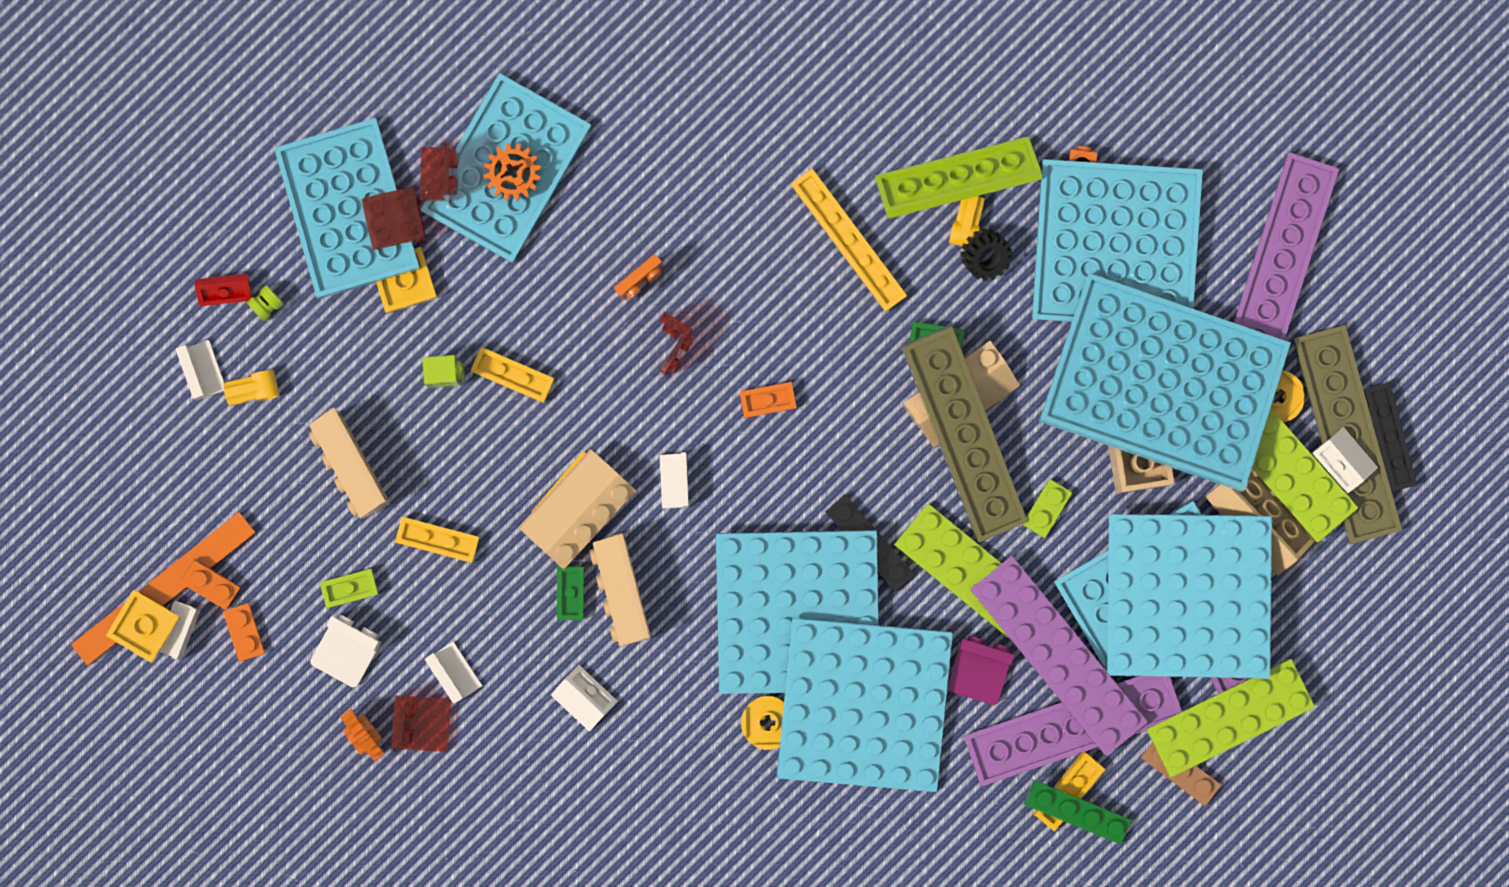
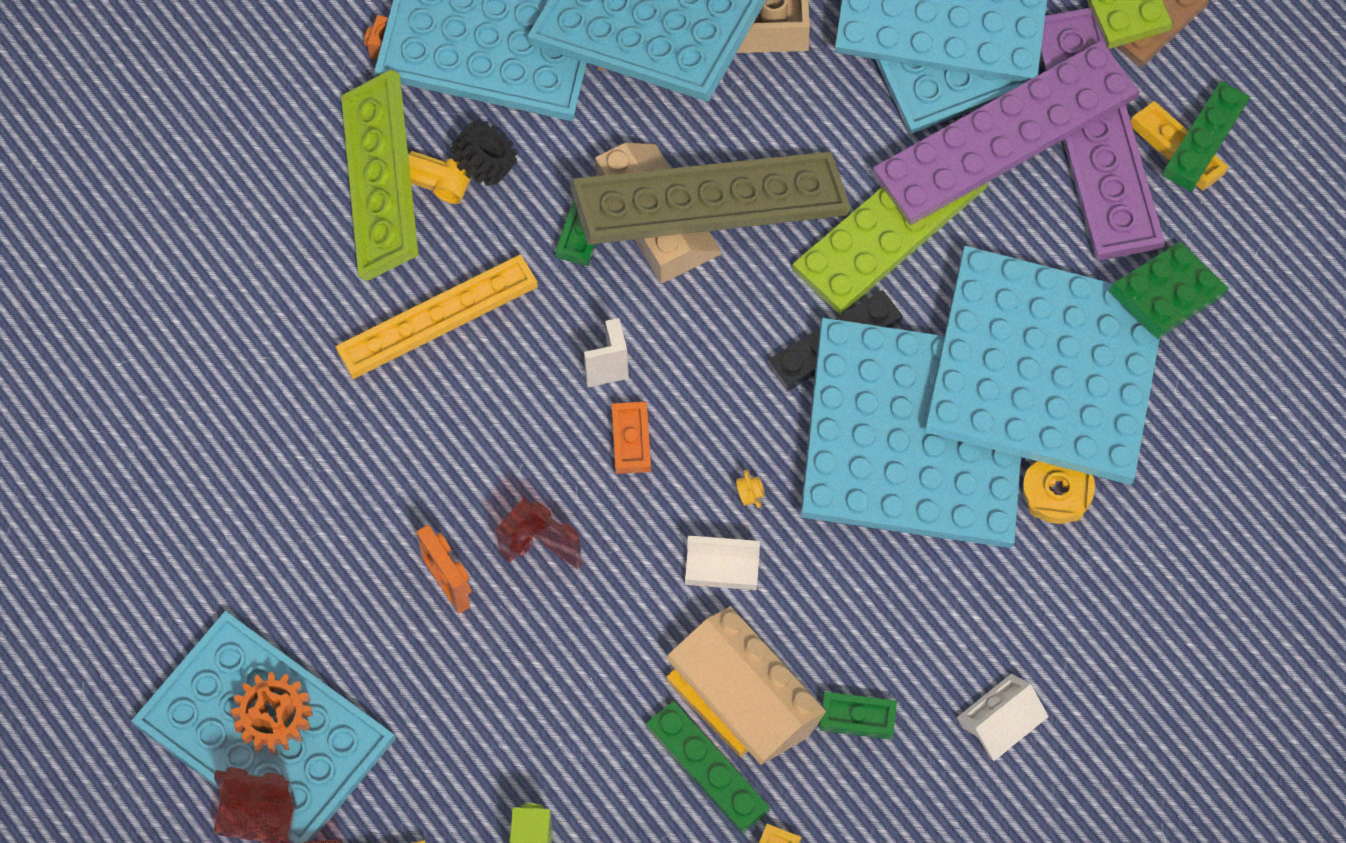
camera: 85 degrees left, 20 degrees down
(512, 375) = (549, 754): yellow plate -> none
(519, 489) = (708, 767): none -> green plate
(621, 590) = (863, 642): tan slope -> none
(736, 494) = (750, 489): none -> yellow plate
(828, 380) = (608, 363): none -> white panel
(939, 792) = (1168, 290): none -> green plate
(979, 670) = (1013, 224): magenta bracket -> none
(1047, 508) = (816, 130): lime plate -> none

